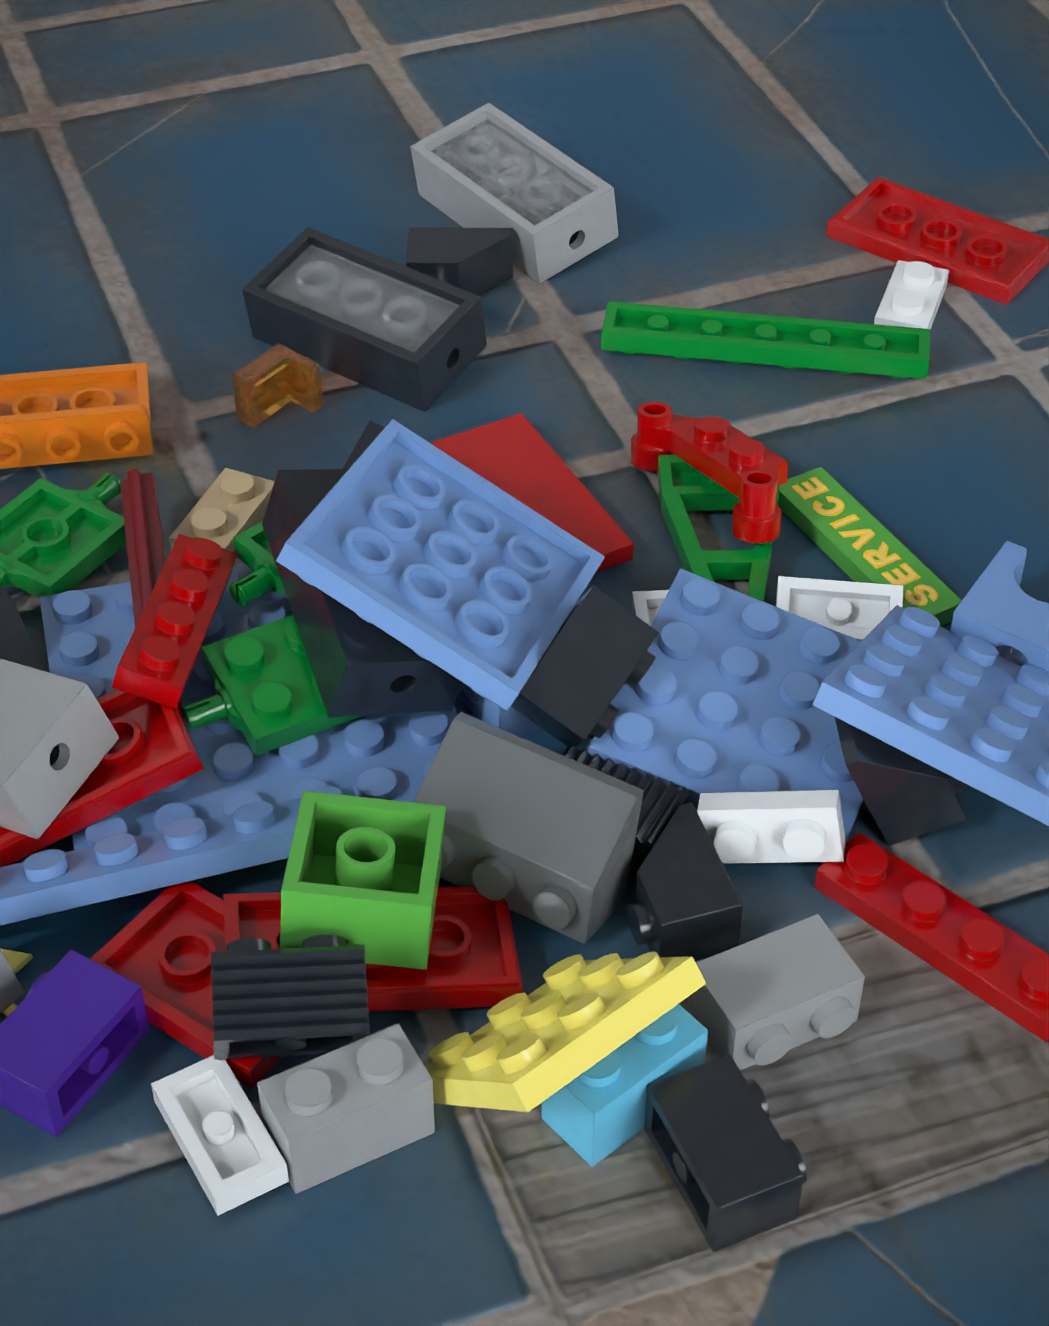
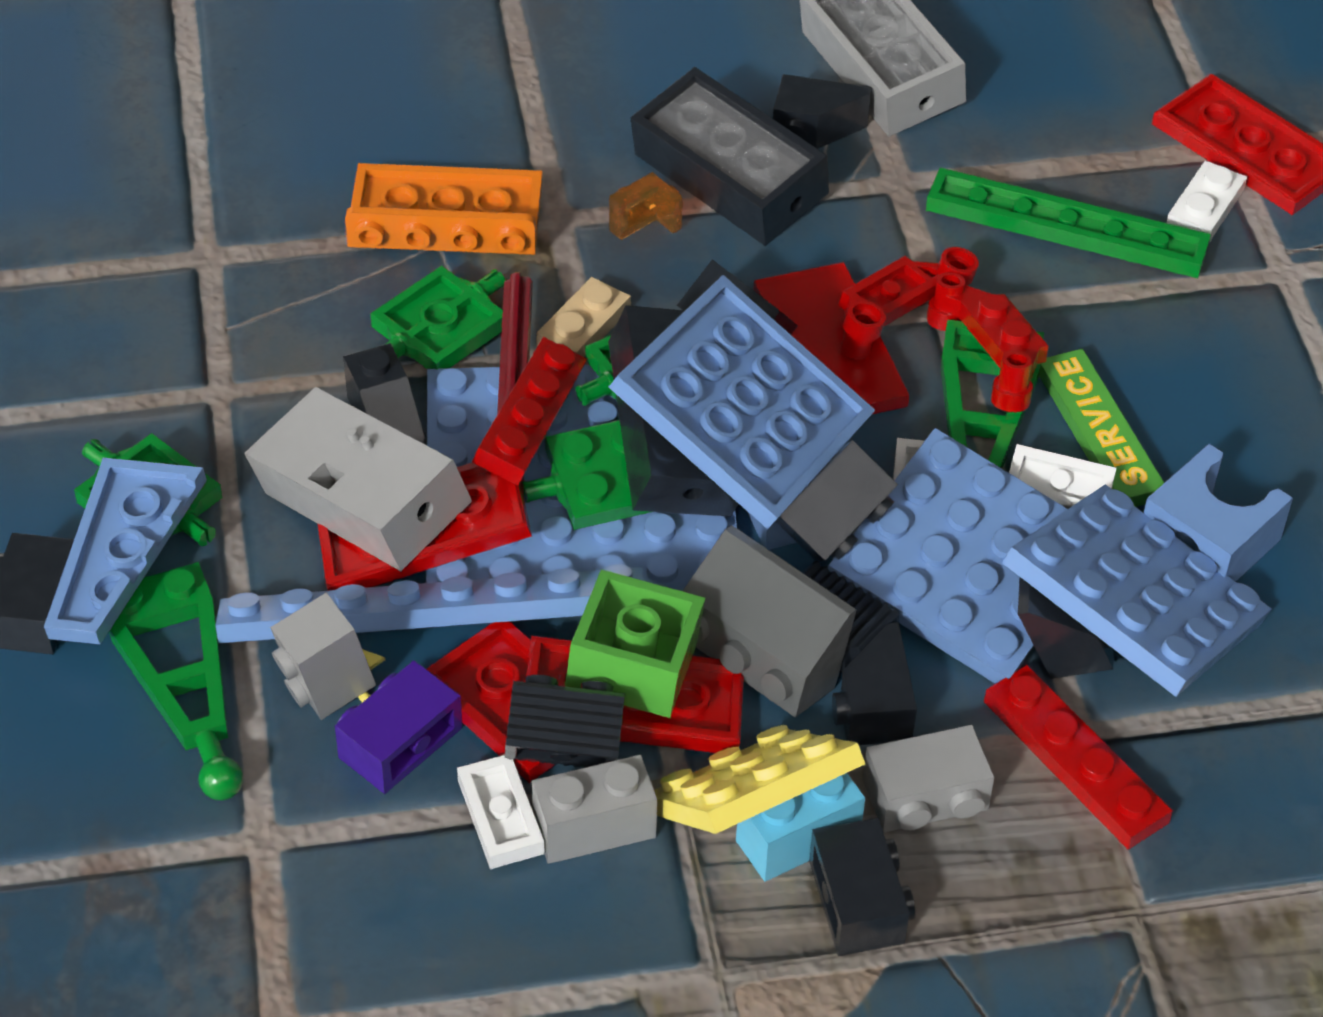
camera: 10 degrees right, 5 degrees up
(588, 436) = (894, 293): none -> red plate
(774, 826) = (958, 650): white plate -> none

